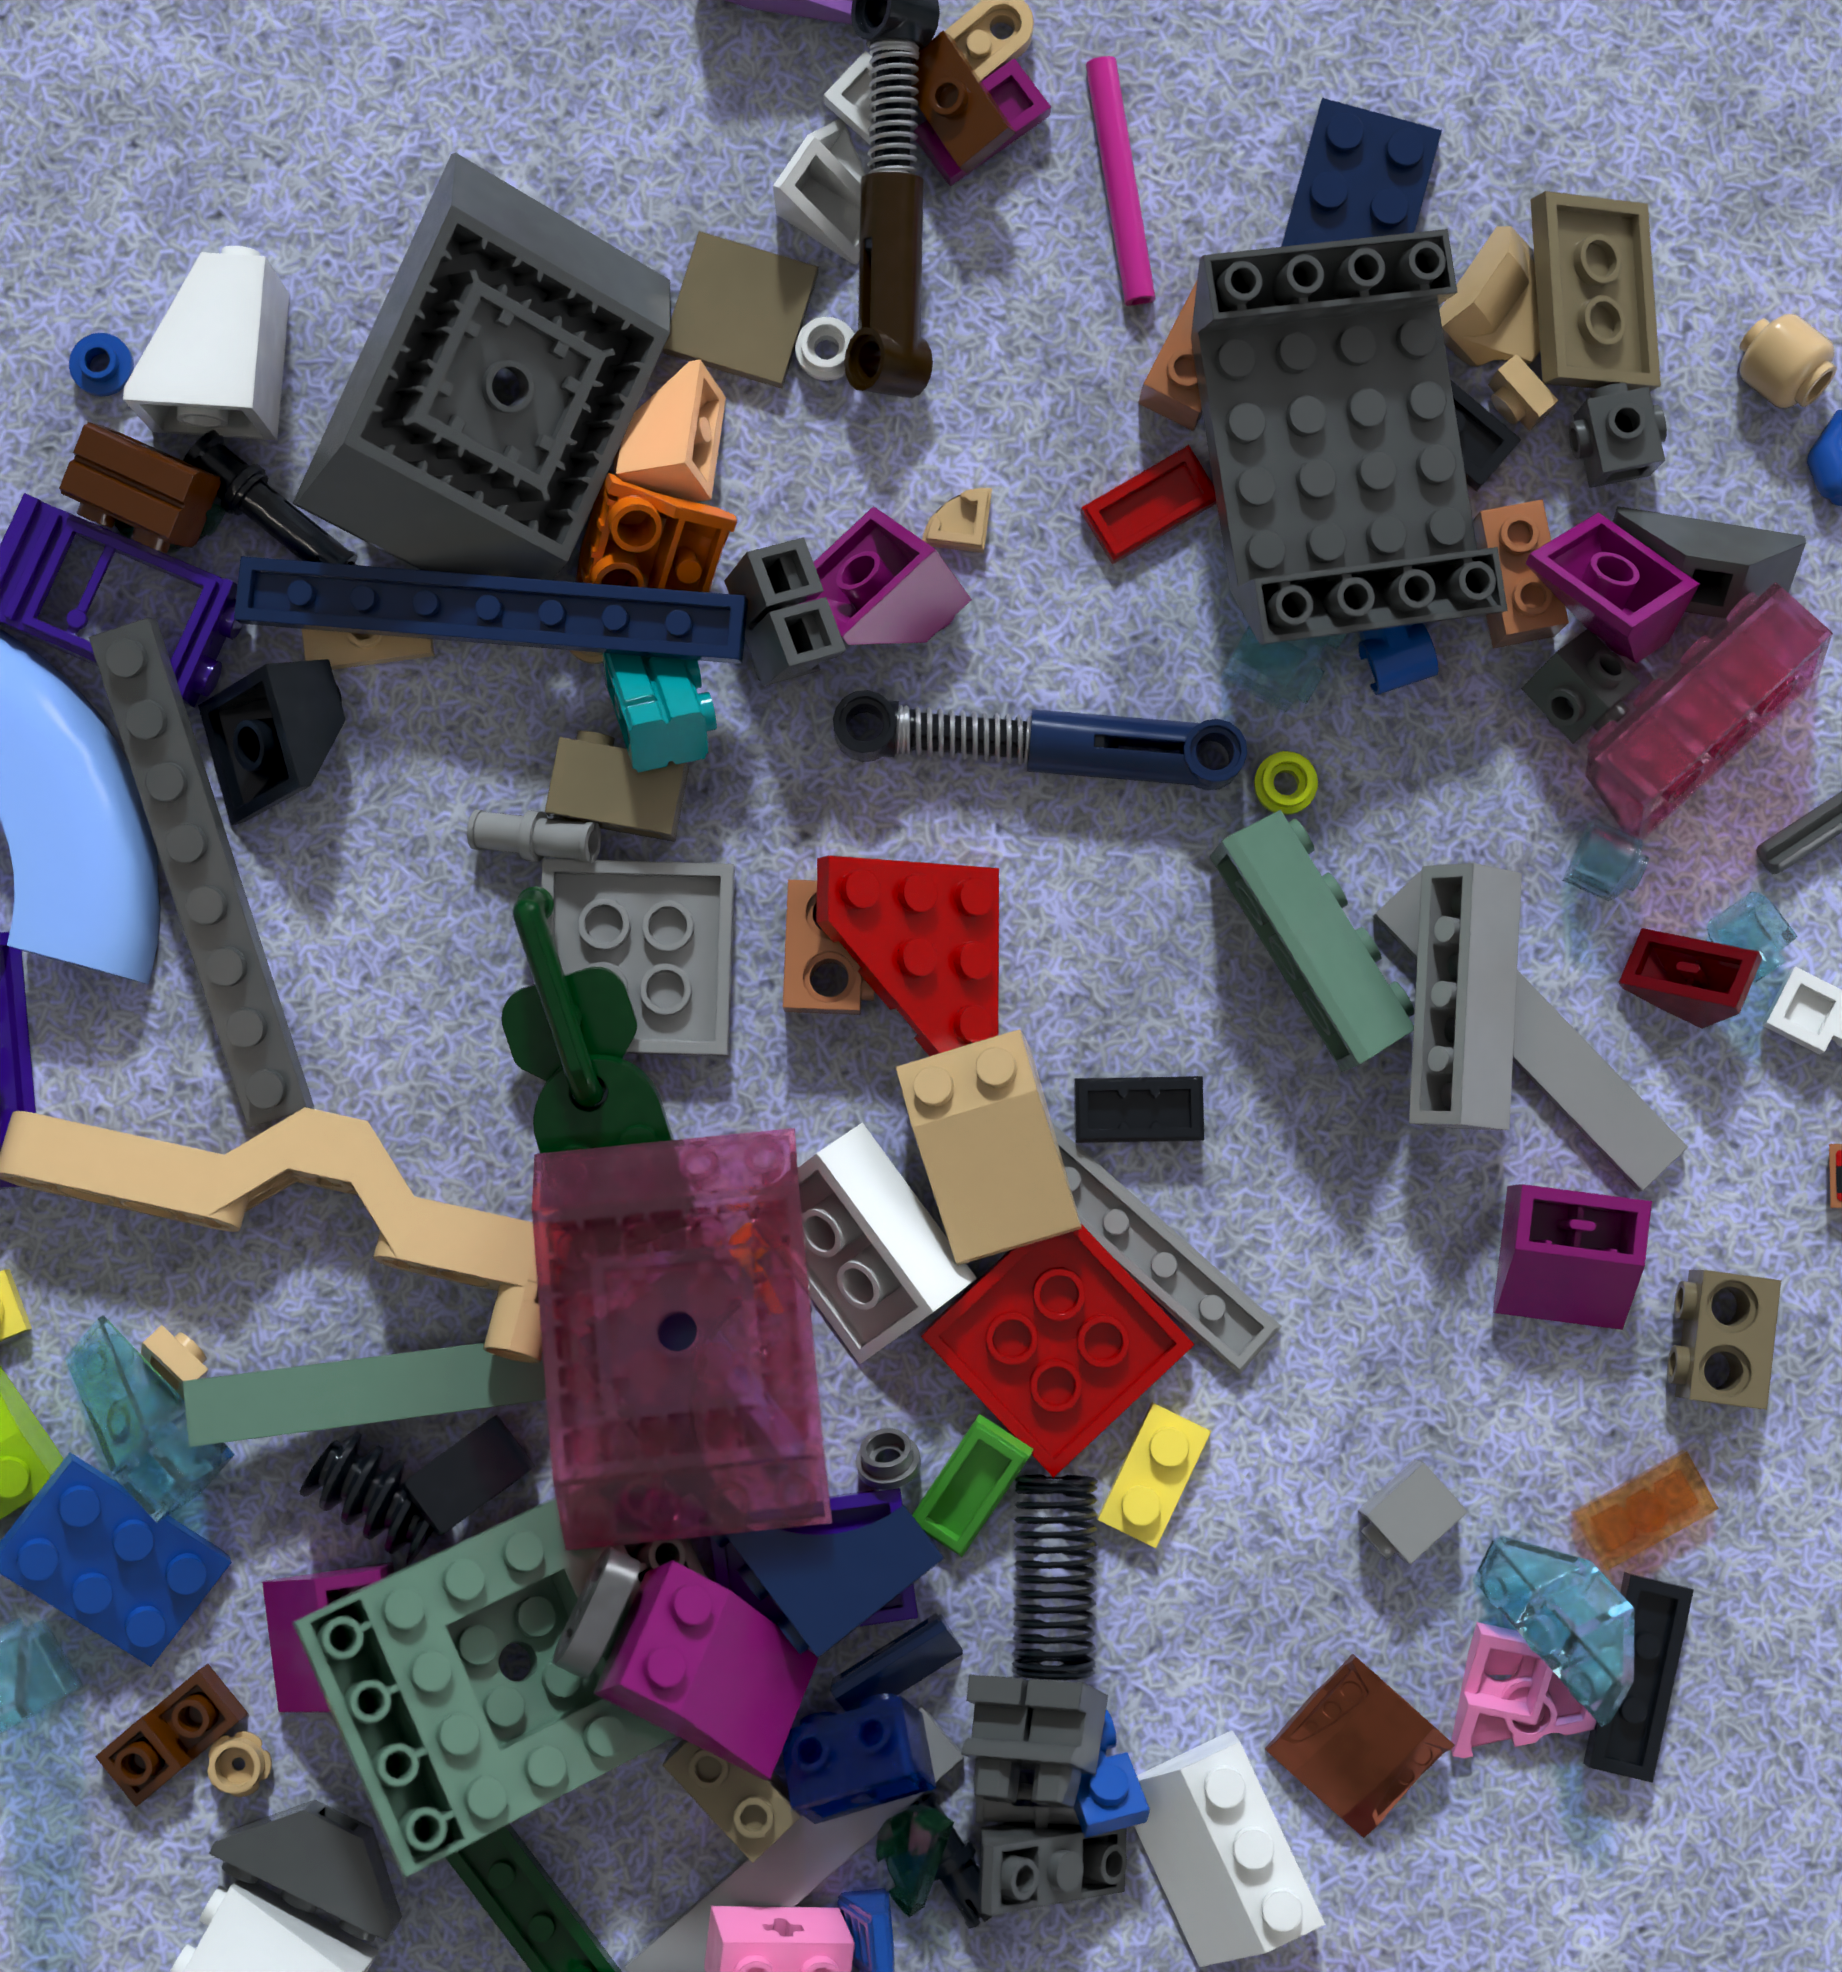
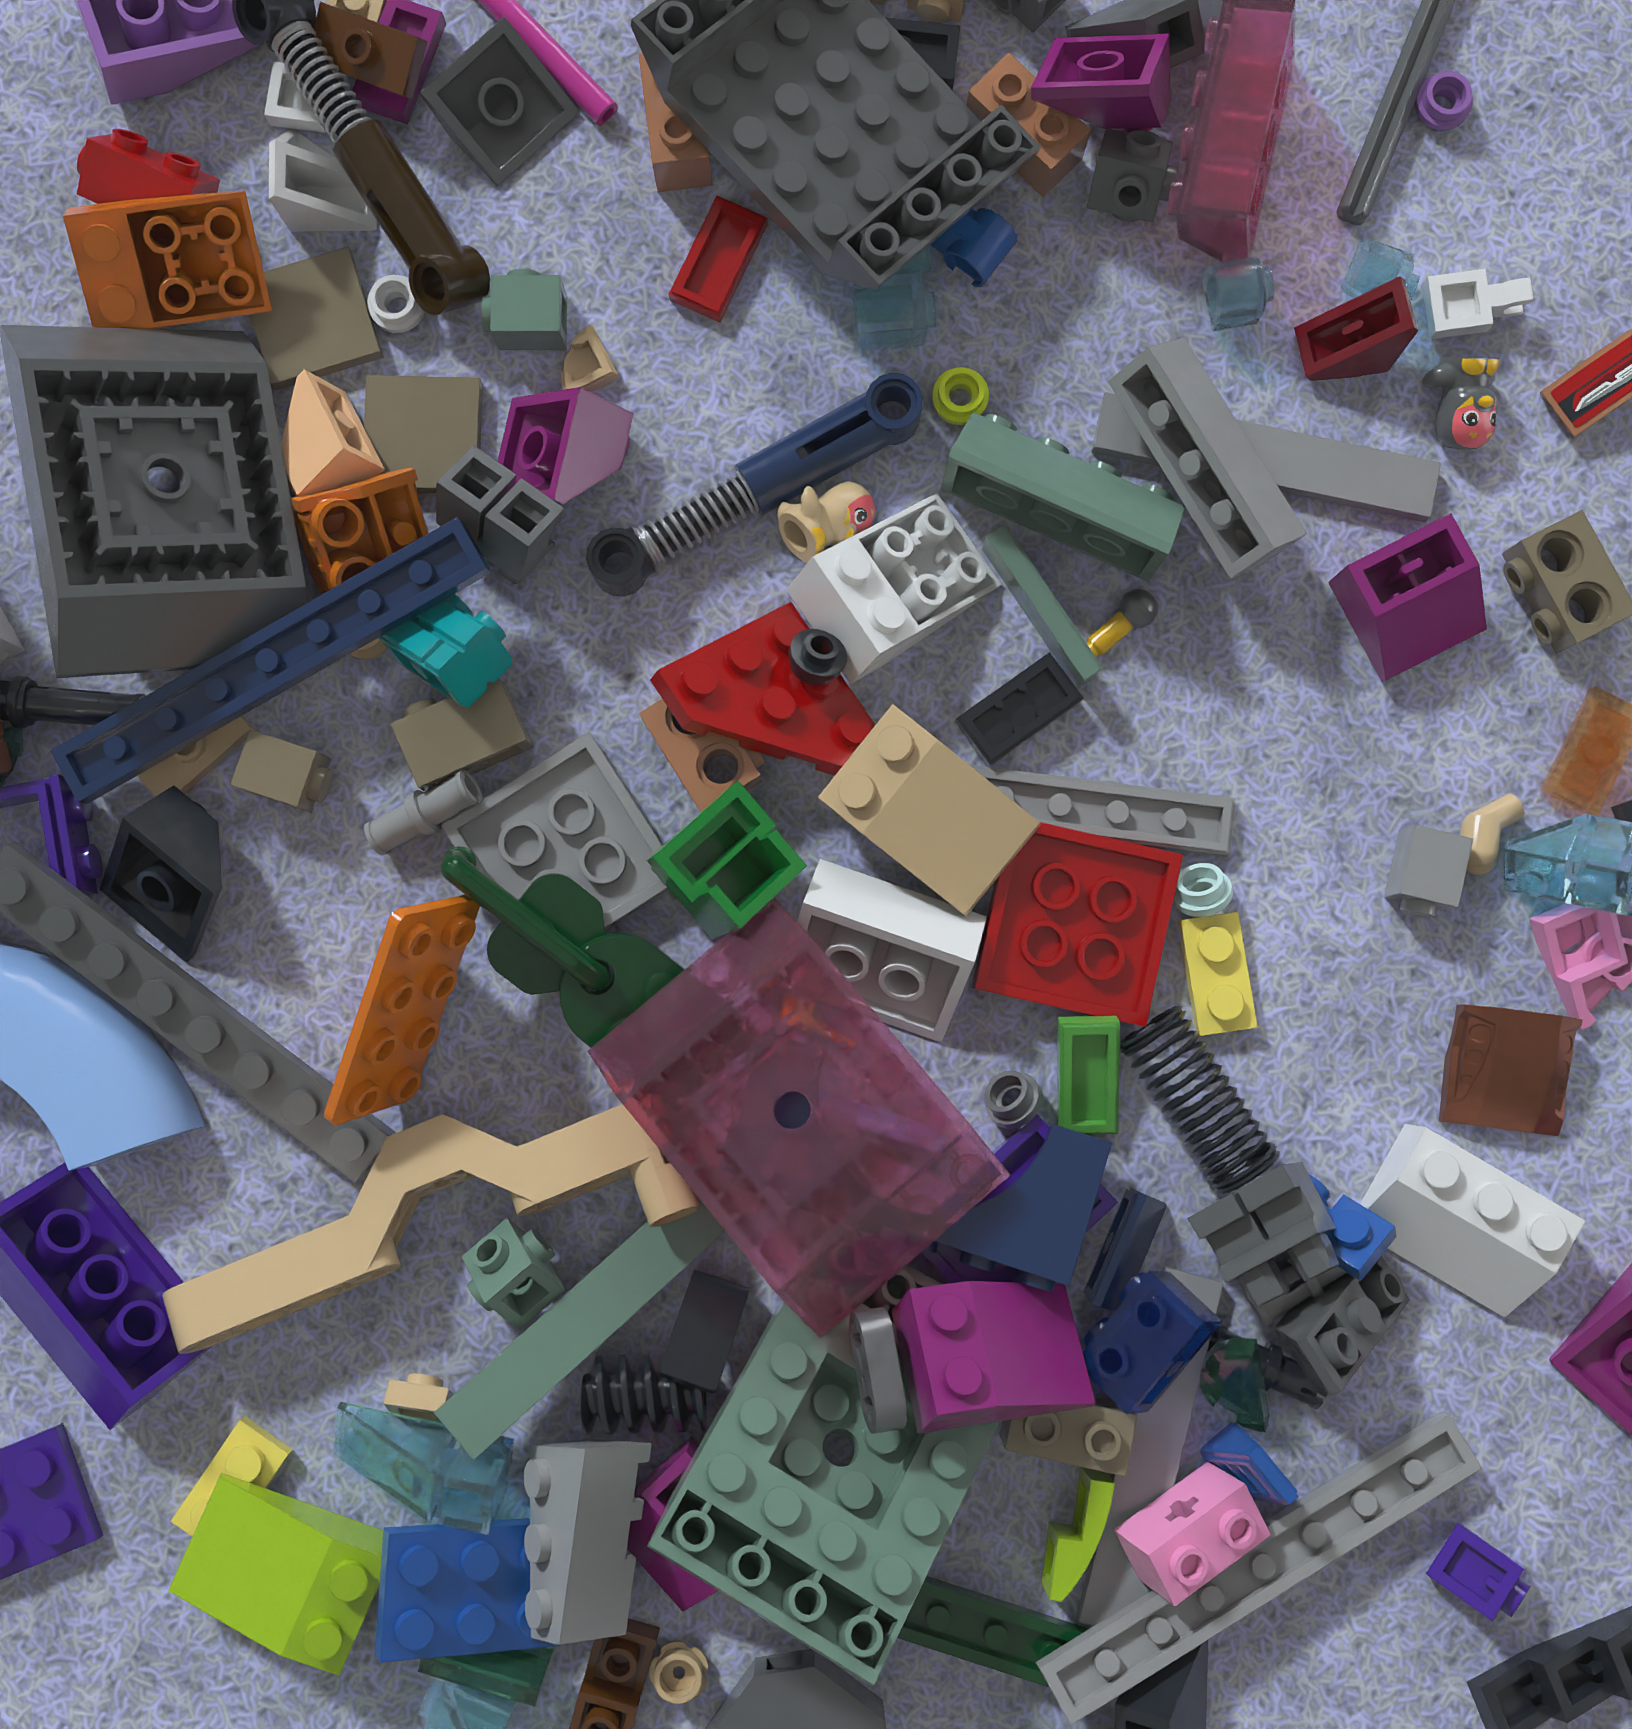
camera: 30 degrees left, 0 degrees up
(86, 1655) = (506, 1674): none -> clear green tile
(235, 1580) = (580, 1537): none -> light grey wedge
(334, 1306) = (513, 1273): none -> sand green brick
(397, 1004) = (401, 1007): none -> orange bracket
(433, 713) = (282, 771): none -> dark tan brick
(644, 178) = (167, 260): none -> orange slope
(664, 1895) = (1073, 1546): none -> lime slope
(672, 92) = (126, 169): none -> red brick
(774, 1069) = (726, 862): none -> green plate
(775, 479) = (423, 423): none -> dark tan tile
(939, 437) = (526, 311): none -> sand green brick
(975, 947) = (816, 656): none -> black plate
(1047, 226) = (499, 102): none -> dark grey slope
(1087, 820) = (825, 521): none -> tan animal
(1101, 917) = (893, 584): none -> white slope
(1191, 1389) = (1202, 890): none -> light aqua plate
(1223, 1029) = (1041, 606): none -> sand green tile
(1309, 1091) = (1135, 611): none -> piece
(1488, 1512) = (1485, 829): none -> tan arm
(1748, 1111) = (1467, 405): none -> animal

